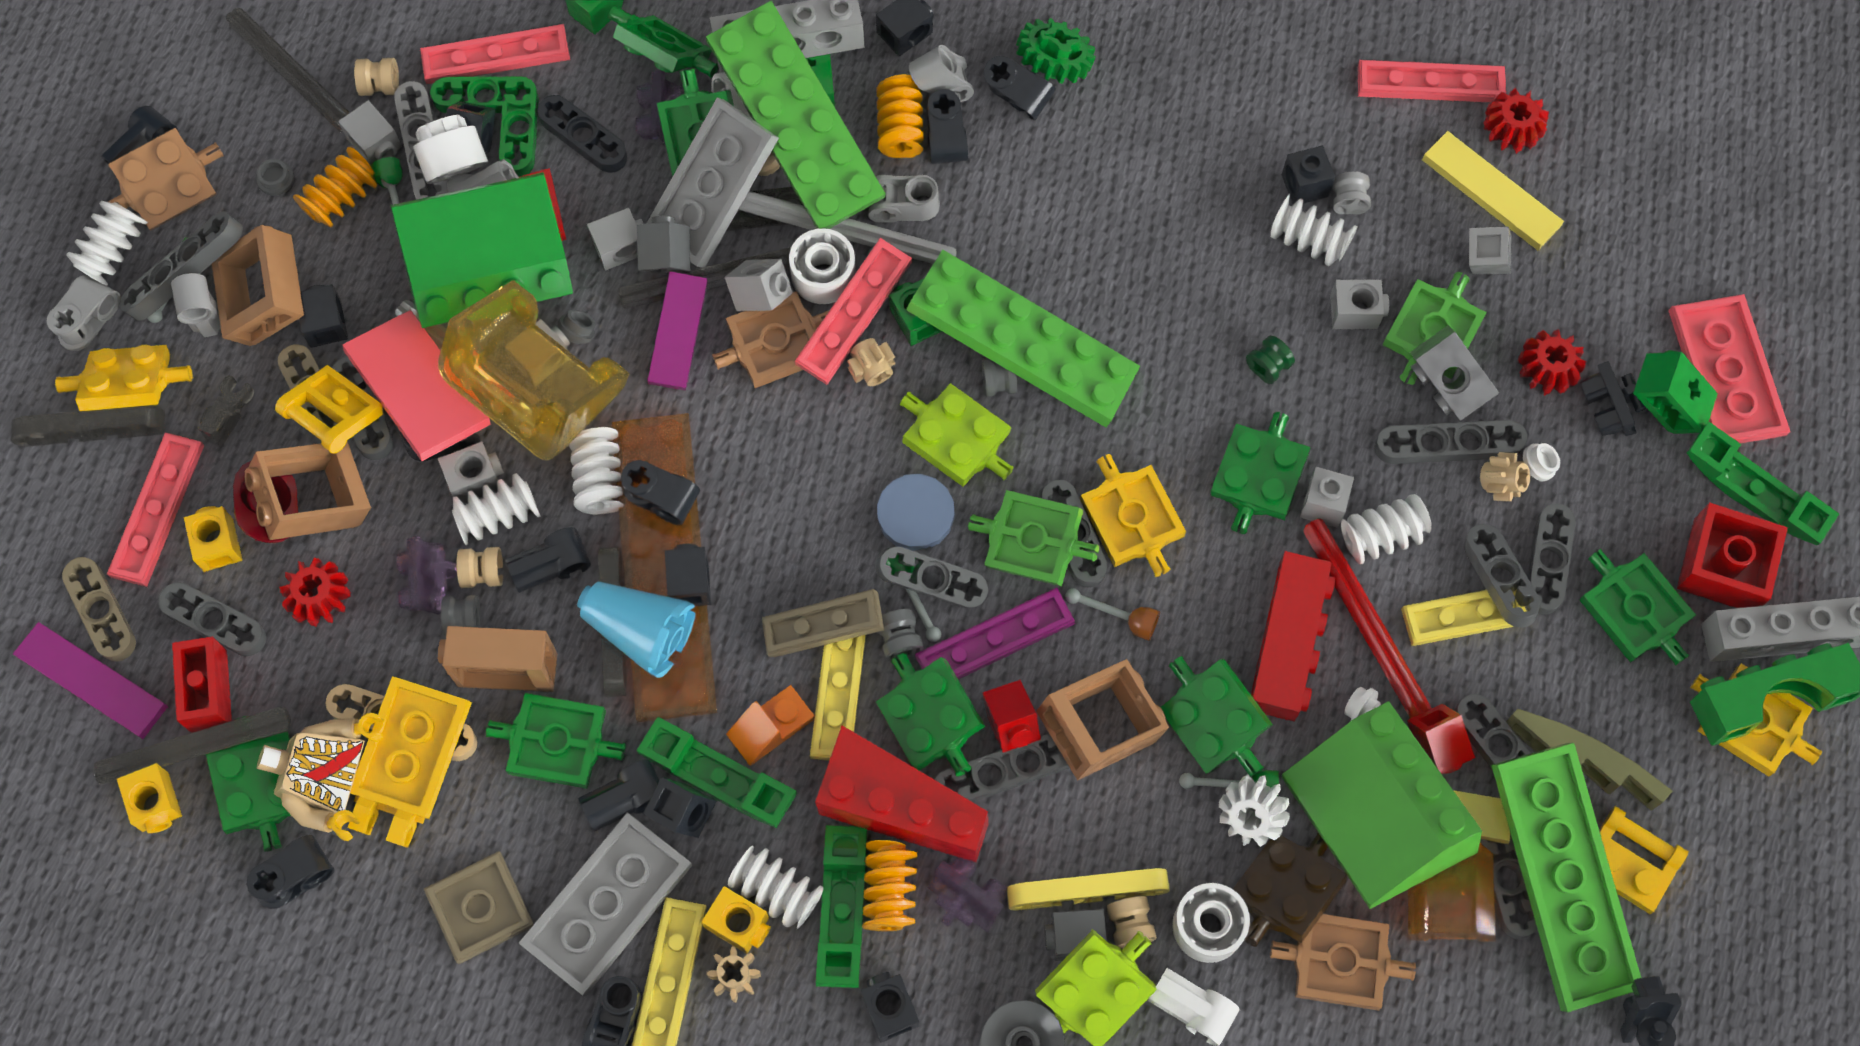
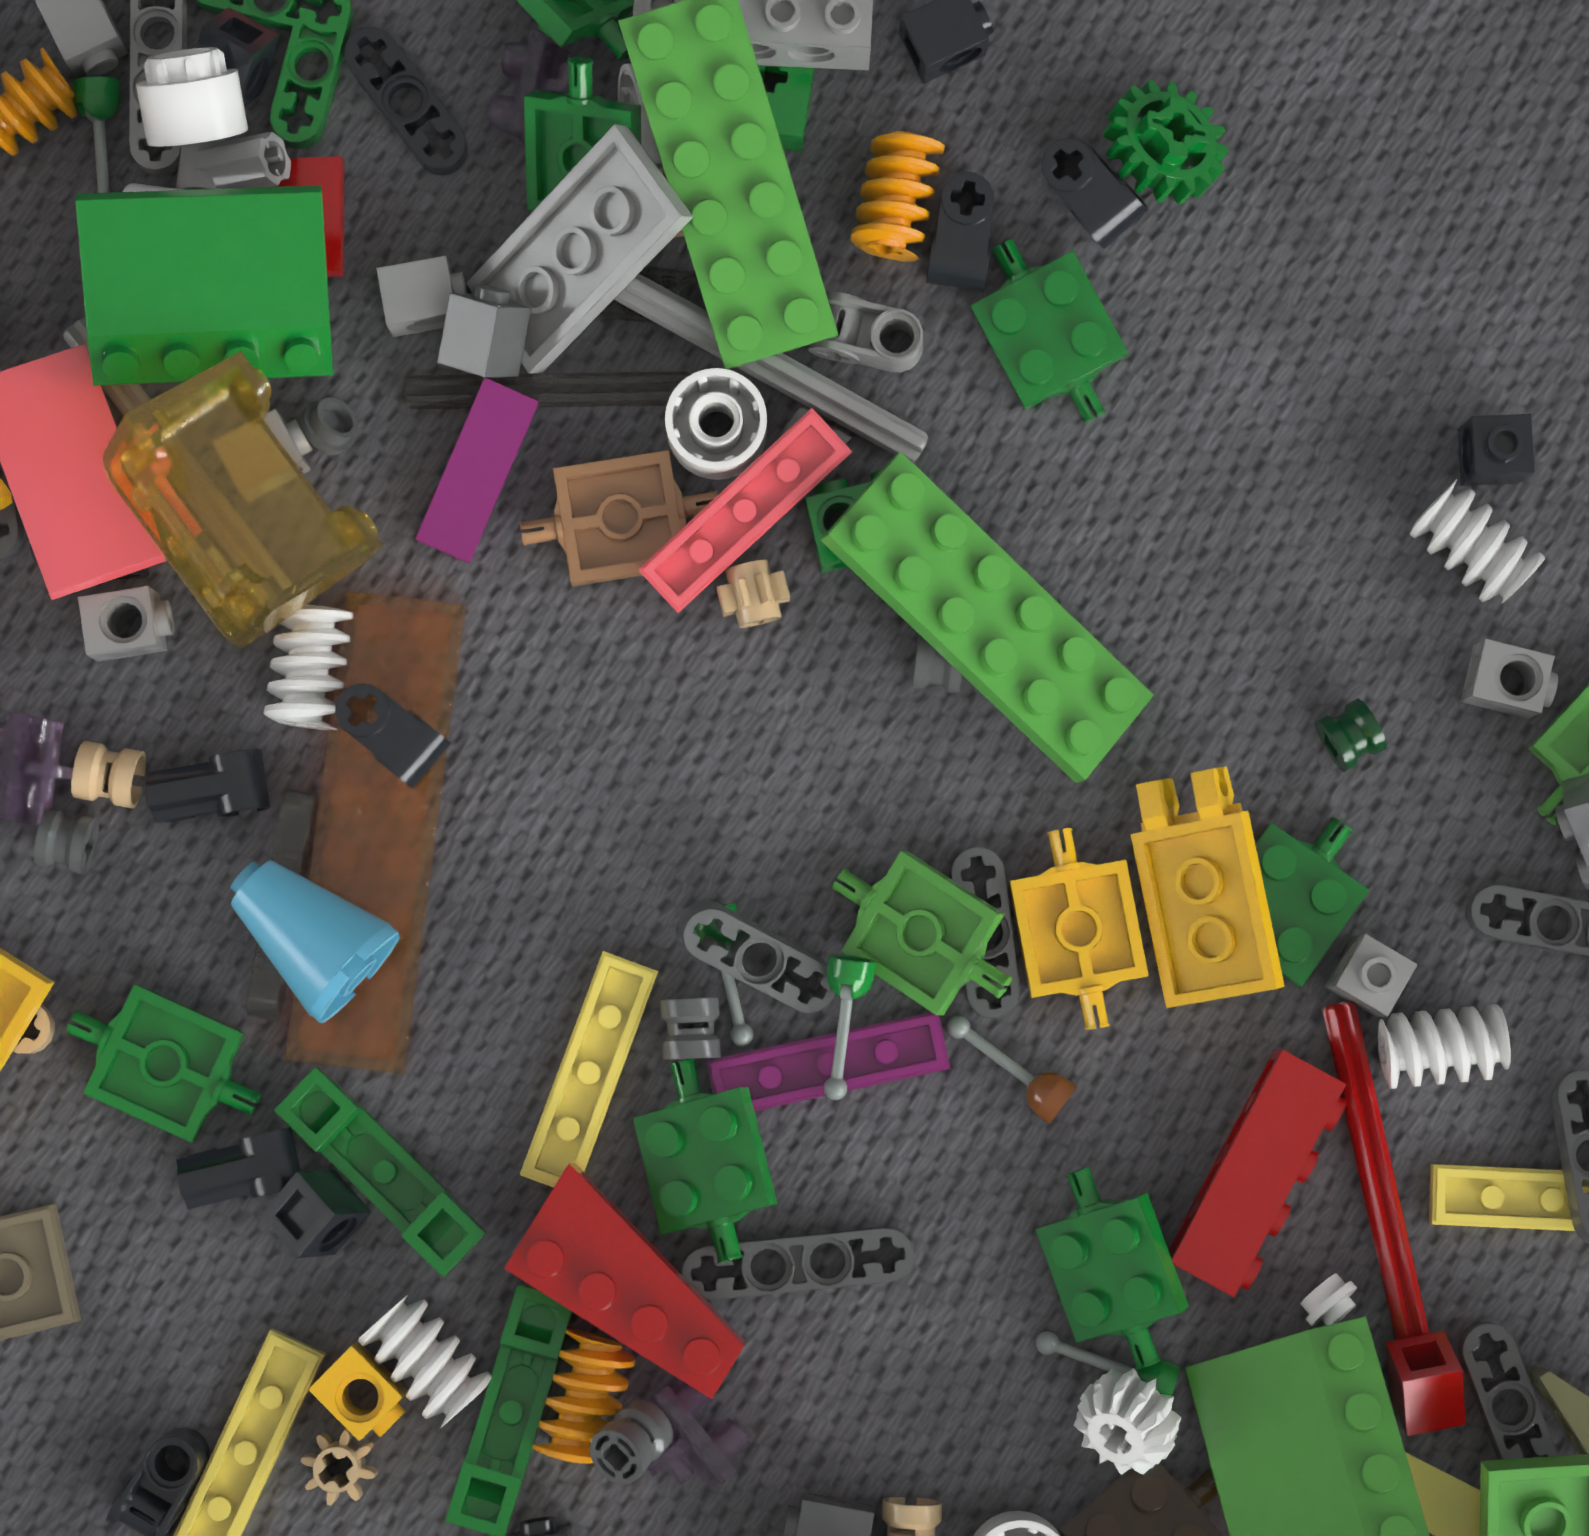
camera: 10 degrees right, 15 degrees up
(494, 508) = (147, 691): white piece -> none
(499, 658) = (103, 932): medium nougat window -> none
(605, 904) = (184, 1319): light grey plate -> none
(688, 574) = (402, 872): black brick -> none
(758, 285) = (613, 431): light grey brick -> none
(769, 725) = (475, 1113): orange slope -> none
(822, 623) = (584, 986): dark tan tile -> none
(915, 512) = (762, 841): sand blue tile -> none
(932, 890) = (631, 1441): none -> dark grey wheel
(941, 70) = (977, 142): light grey piece -> none
(956, 435) = (852, 736): lime plate -> none
(994, 575) = (849, 979): none -> hinge
(1011, 716) = (820, 1196): red brick -> none
(1015, 173) = (1049, 330): none -> green plate
(1072, 736) = (895, 1251): medium nougat window -> none
(1087, 888) = (863, 1470): light yellow beam -> none
(1207, 473) = (1204, 893): none -> yellow tile
(1351, 193) = (1554, 494): light grey wheel -> none

